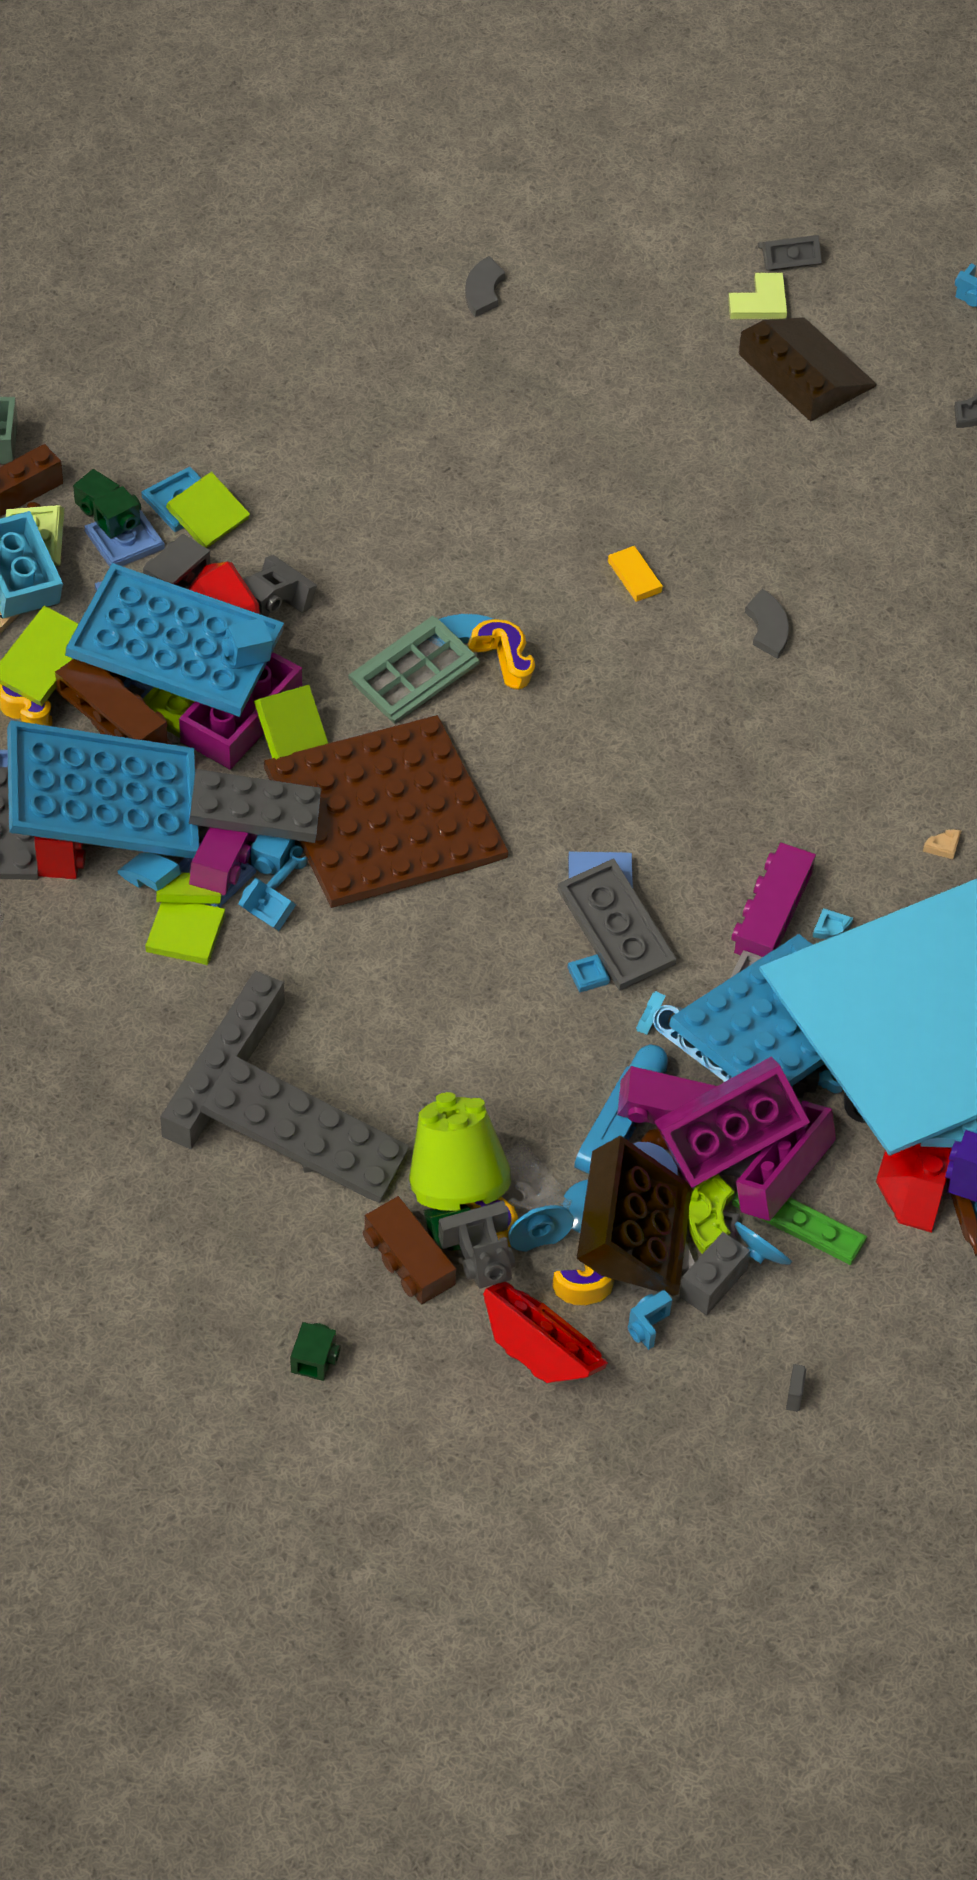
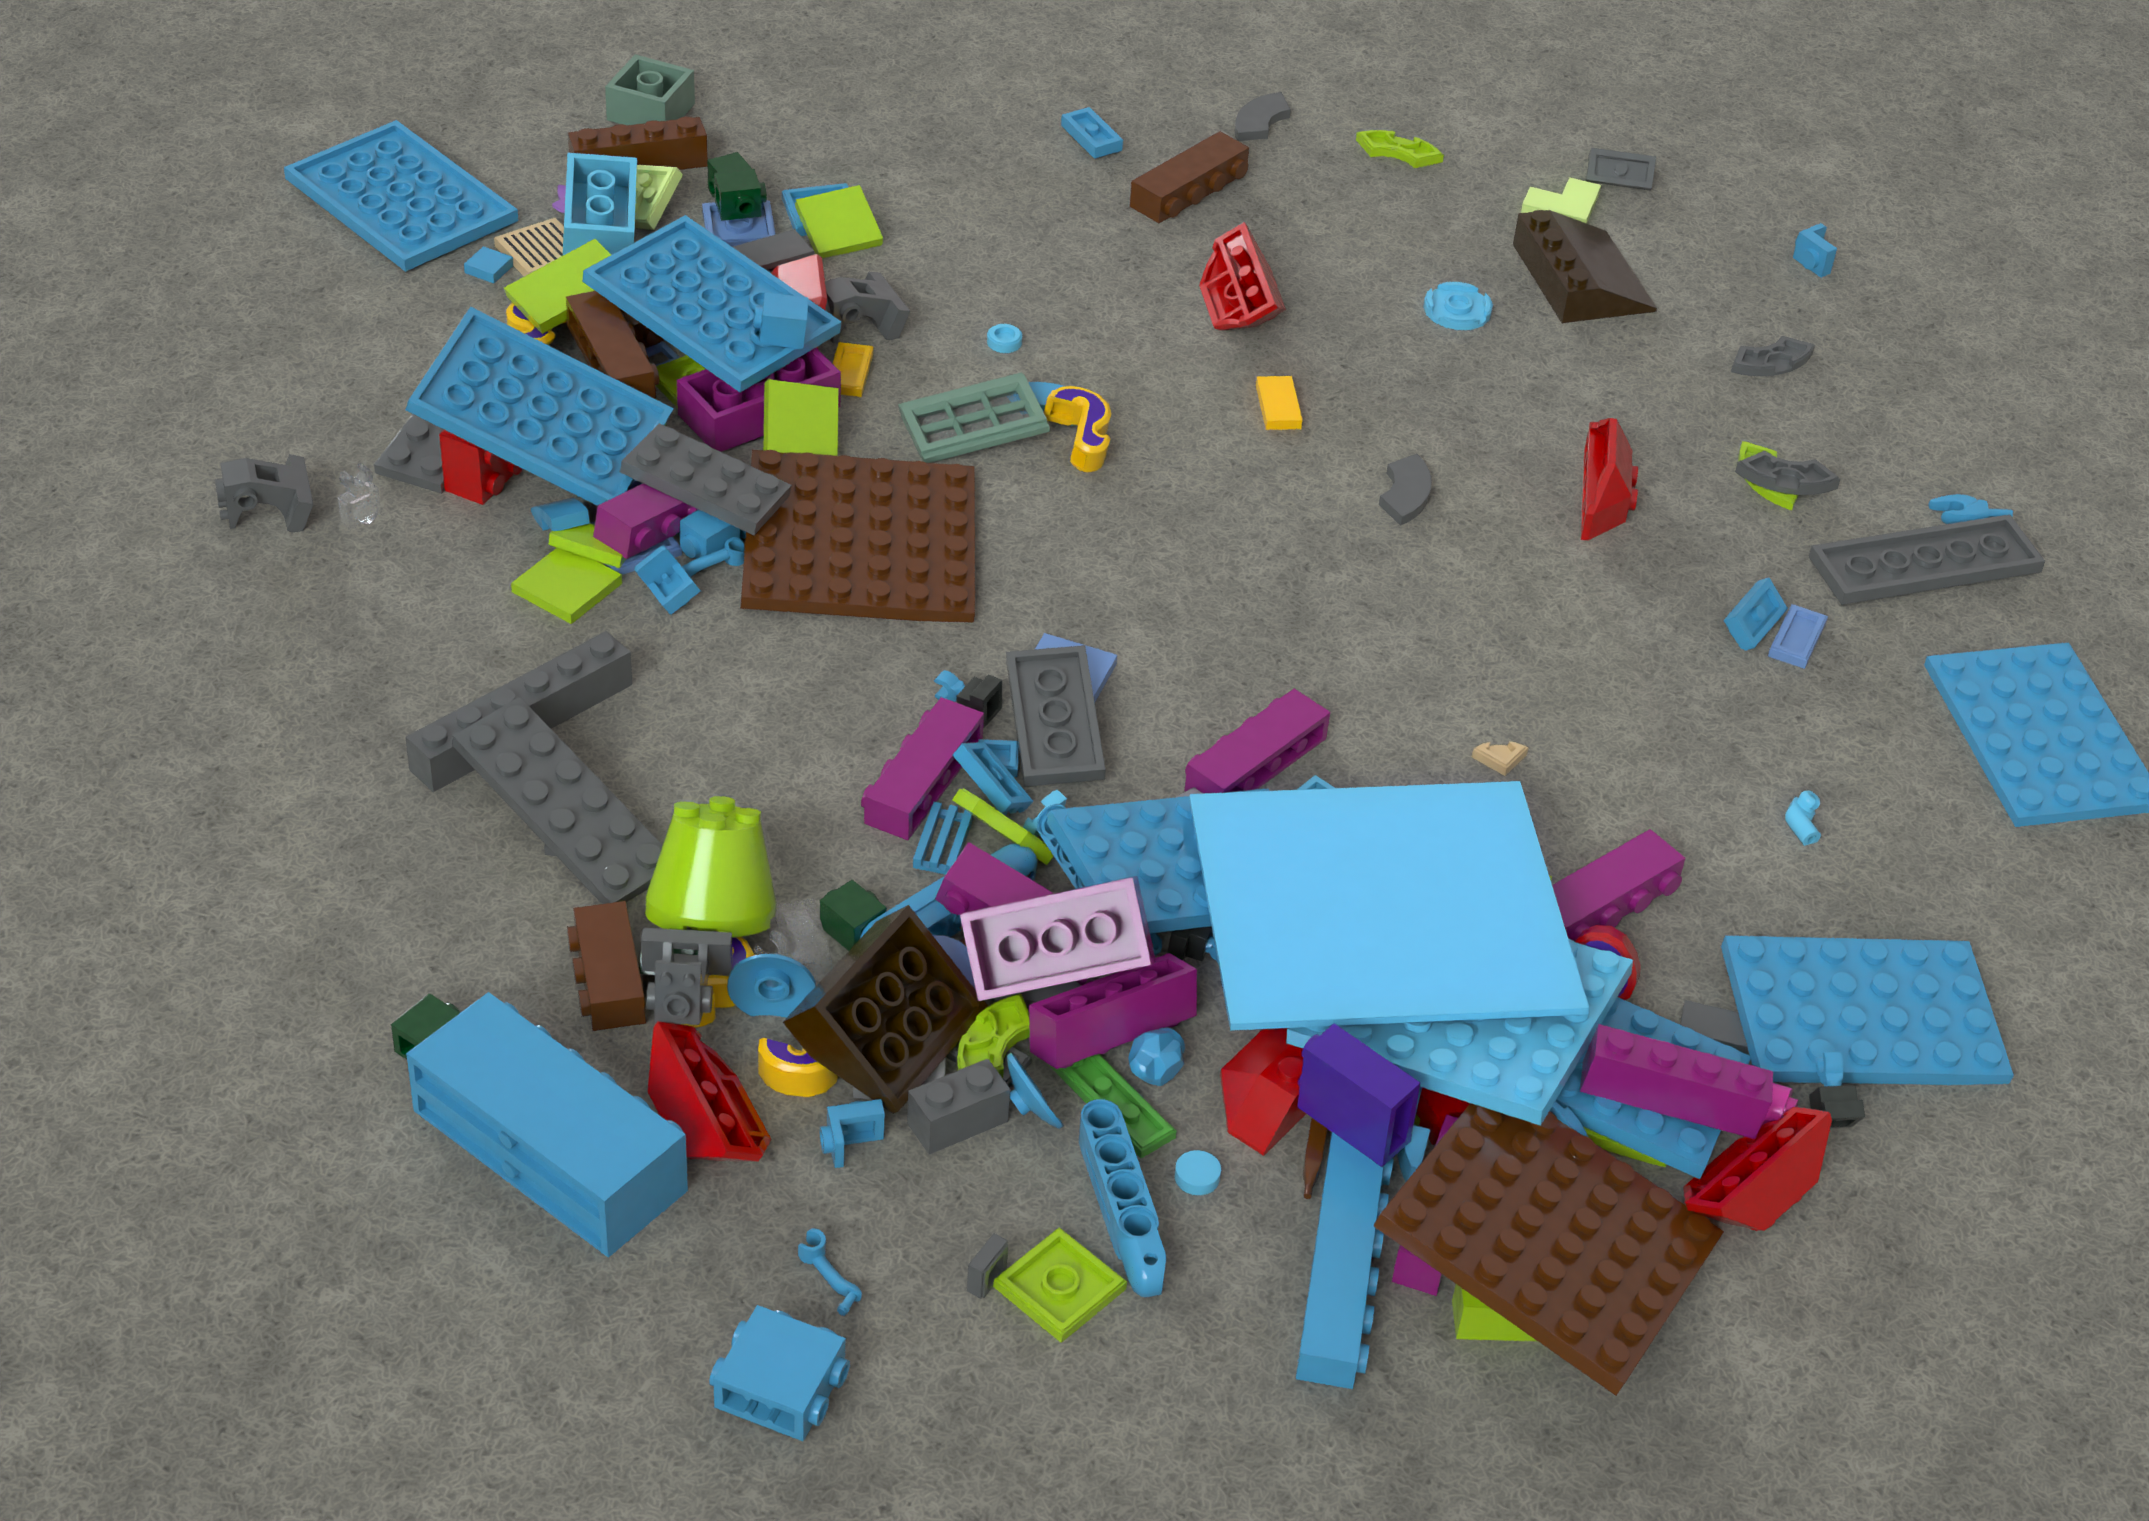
camera: 20 degrees right, 10 degrees down
(293, 649) = (854, 365): none -> yellow tile
(359, 348) = (1092, 132): none -> dark azure plate
(394, 581) = (1004, 338): none -> medium azure tile
(445, 1392) = (549, 1123): none -> dark azure brick
(461, 371) = (1189, 177): none -> reddish brown brick
(544, 1003) = (921, 769): none -> magenta brick
(550, 929) = (977, 694): none -> pearl dark grey piece
(555, 470) = (1239, 283): none -> red wedge
(558, 1146) = (848, 912): none -> dark green brick
(582, 1034) = (949, 817): none -> dark azure tile
(600, 995) = (992, 777): none -> dark azure tile
(617, 283) = (1385, 143): none -> lime tile
(627, 1032) = (1002, 824): none -> lime tile
(692, 1433) = (816, 1256): none -> dark azure piece
(702, 1518) = (780, 1372): none -> dark azure brick
(720, 438) = (1458, 306): none -> medium azure tile
(827, 1182) = (1157, 1056): none -> dark azure rock
(846, 1382) = (1060, 1284): none -> lime tile
(858, 1289) = (1122, 1195): none -> dark azure piece
(895, 1262) = (1197, 1172): none -> medium azure tile
(912, 567) = (1607, 479): none -> red wedge

